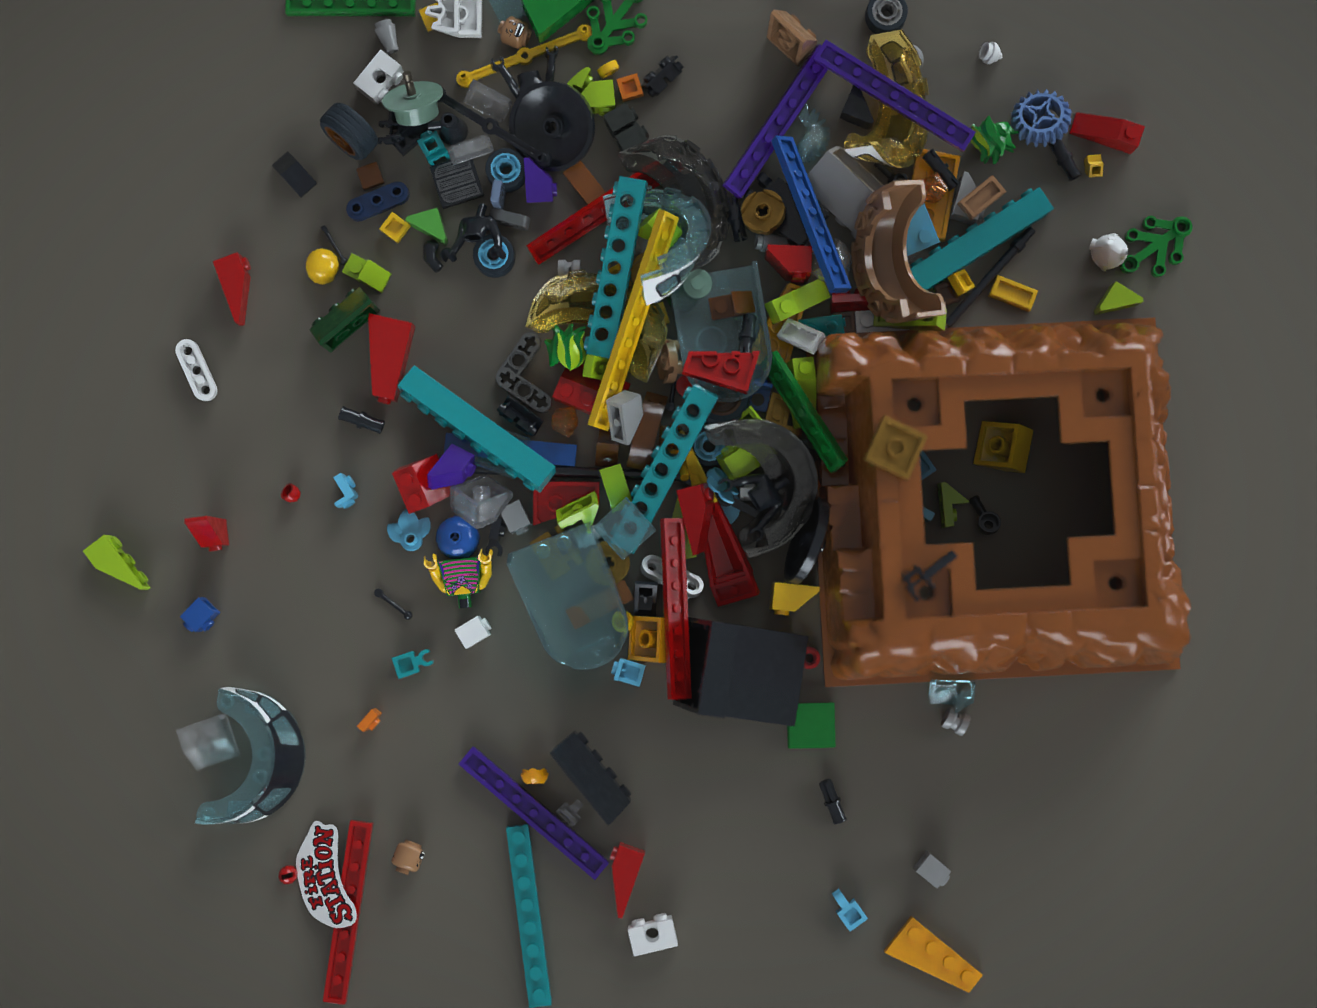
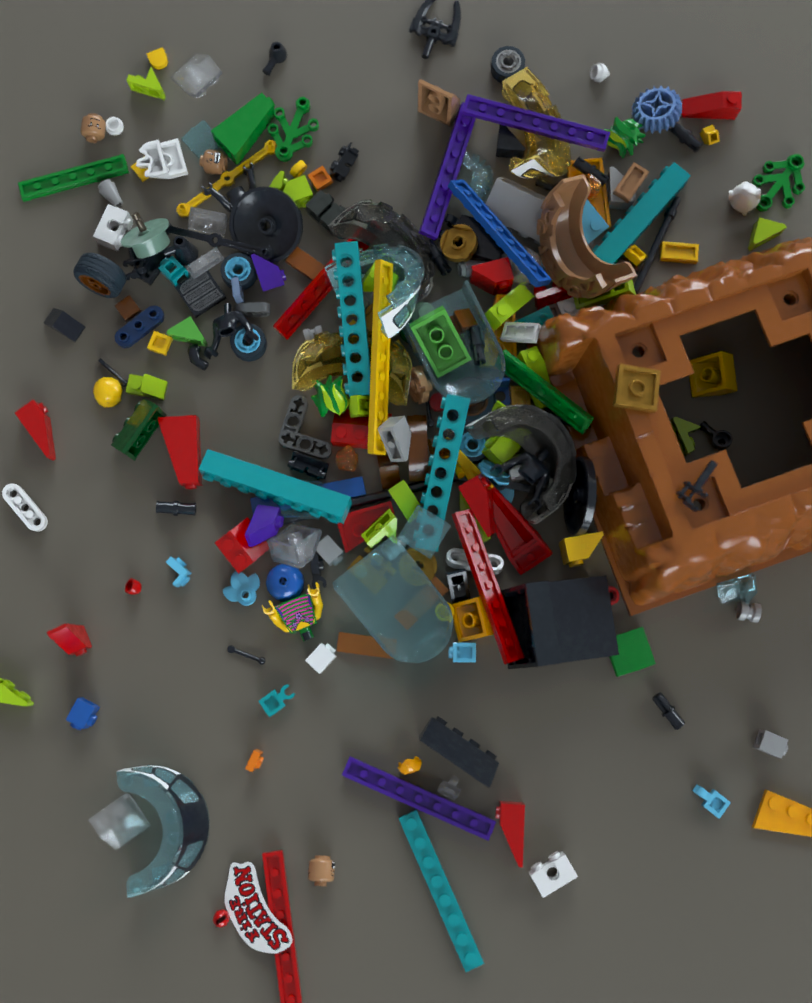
camera: 20 degrees left, 5 degrees down
(518, 629) = (360, 645): none -> dark orange tile
(705, 318) = (440, 341): none -> bright green slope
(722, 369) = (467, 375): red wing -> none

